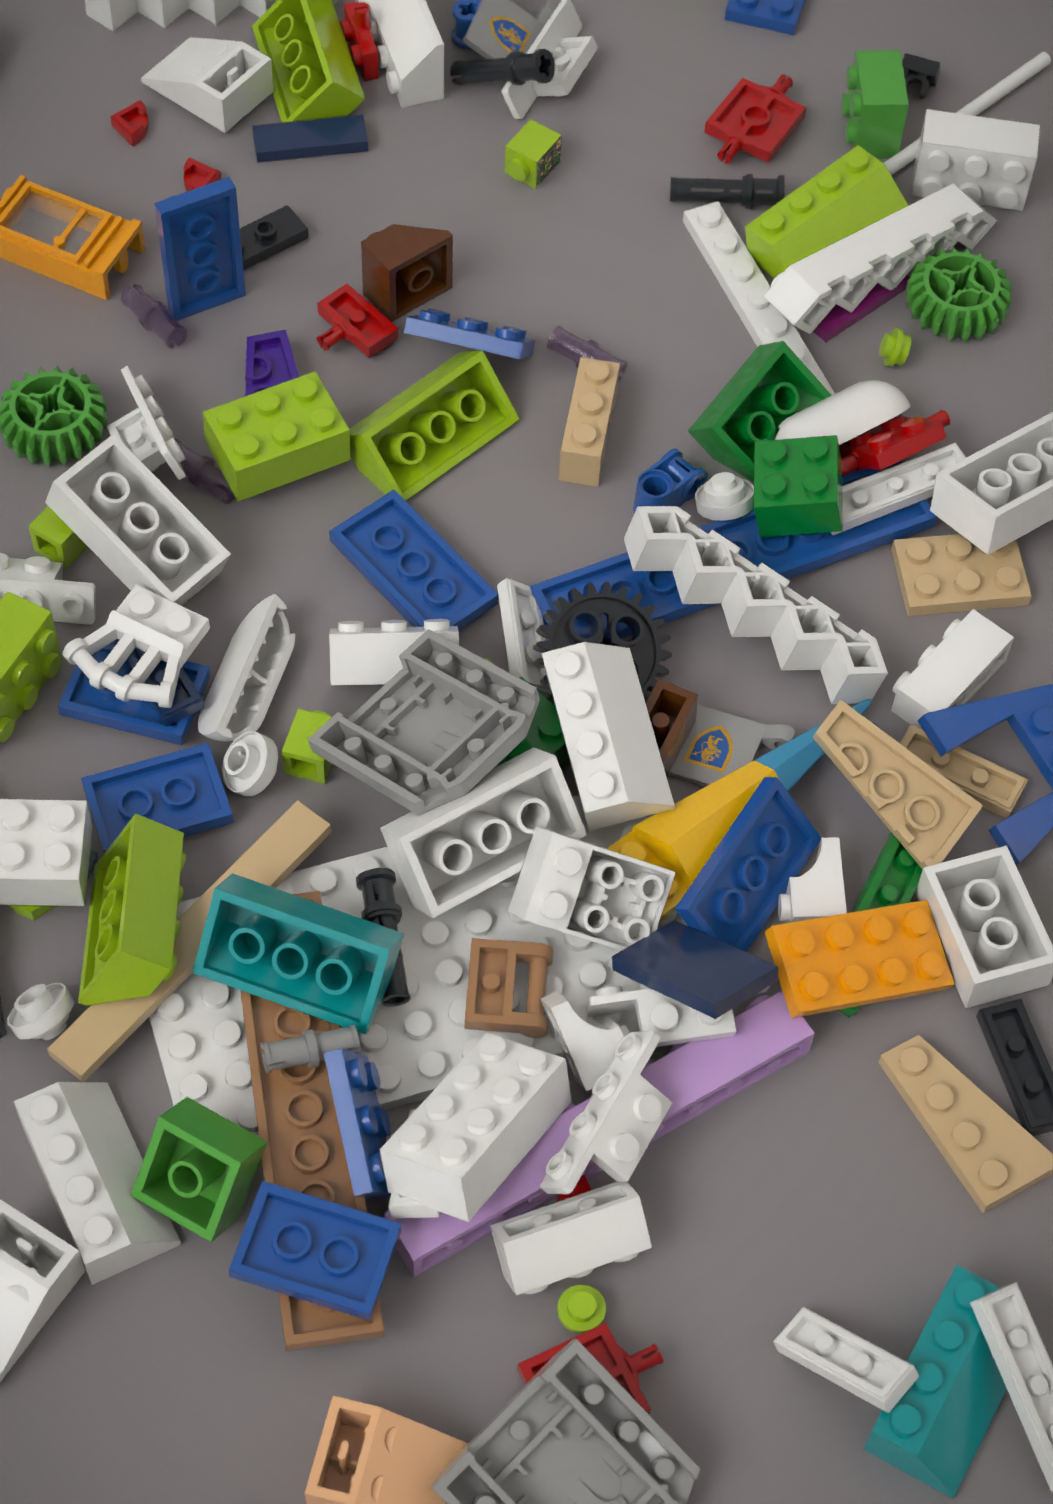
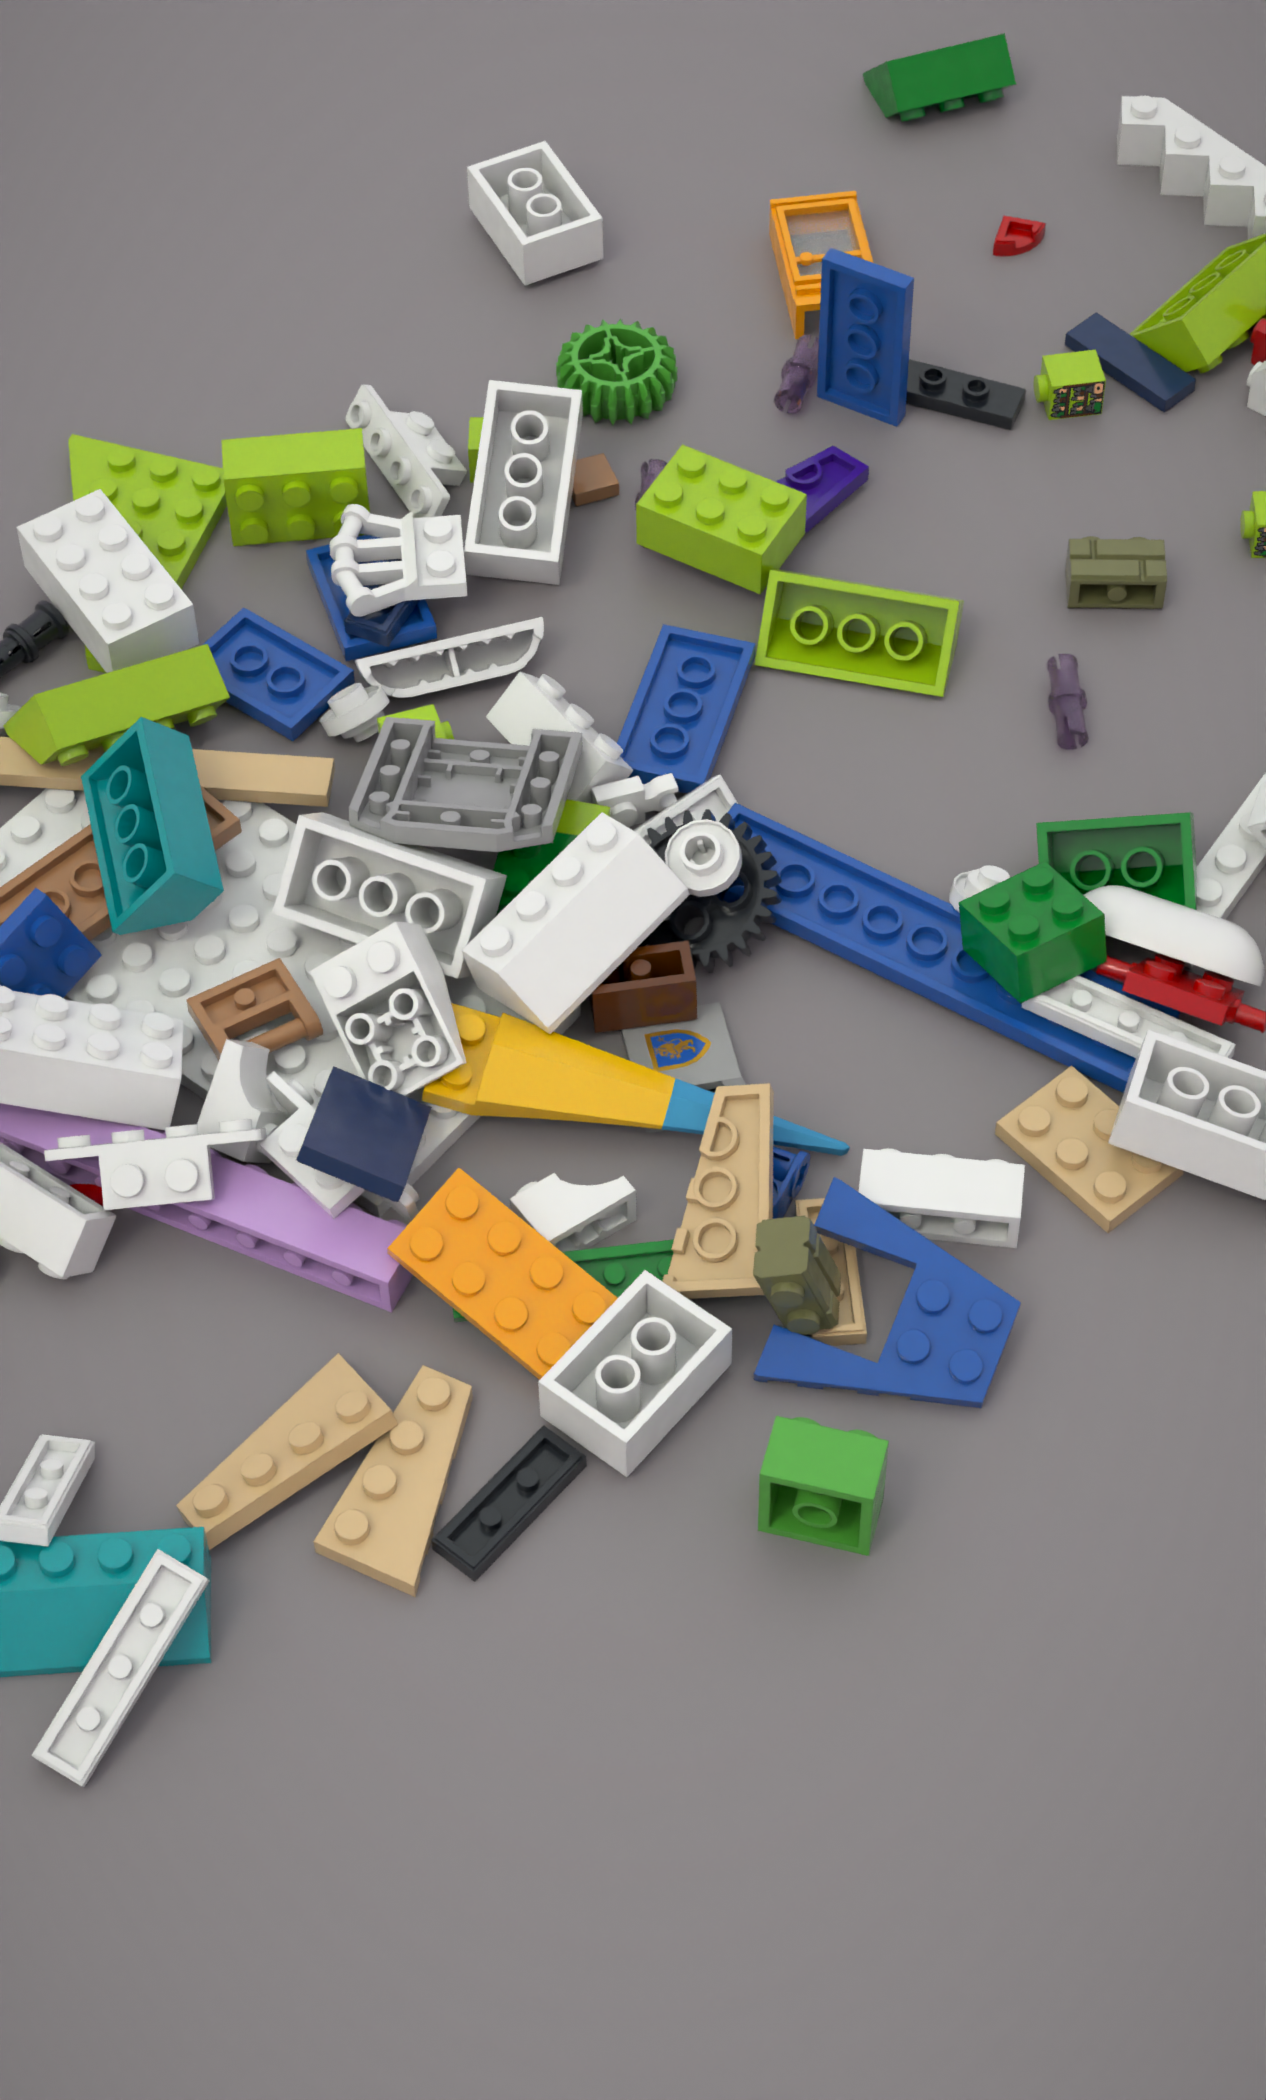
camera: 60 degrees right, 5 degrees down
(146, 429) = (655, 431): white bracket -> none
(198, 174) = (997, 318): red tile -> none
(214, 79) = (1117, 257): white slope -> none
(308, 1048) = (64, 893): light grey pin -> none
(309, 178) = (1070, 385): none -> lime brick
(355, 322) = (931, 512): red plate -> none
(386, 913) = (255, 885): black pin -> none
(406, 268) = (1018, 503): reddish brown slope -> none
(470, 333) = (988, 594): plate -> none
(481, 633) = (632, 799): none -> white plate
(500, 260) = (1115, 573): none -> olive brick
(588, 421) = (944, 749): tan arch -> none
(610, 620) = (704, 857): none -> white plate
(669, 482) = (957, 842): blue piece -> none
(750, 867) = (533, 1131): blue plate -> none
(756, 602) = (857, 975): white brick -> none
(898, 1169) = (292, 1448): none -> tan wing
(990, 781) = (797, 1274): none -> olive brick

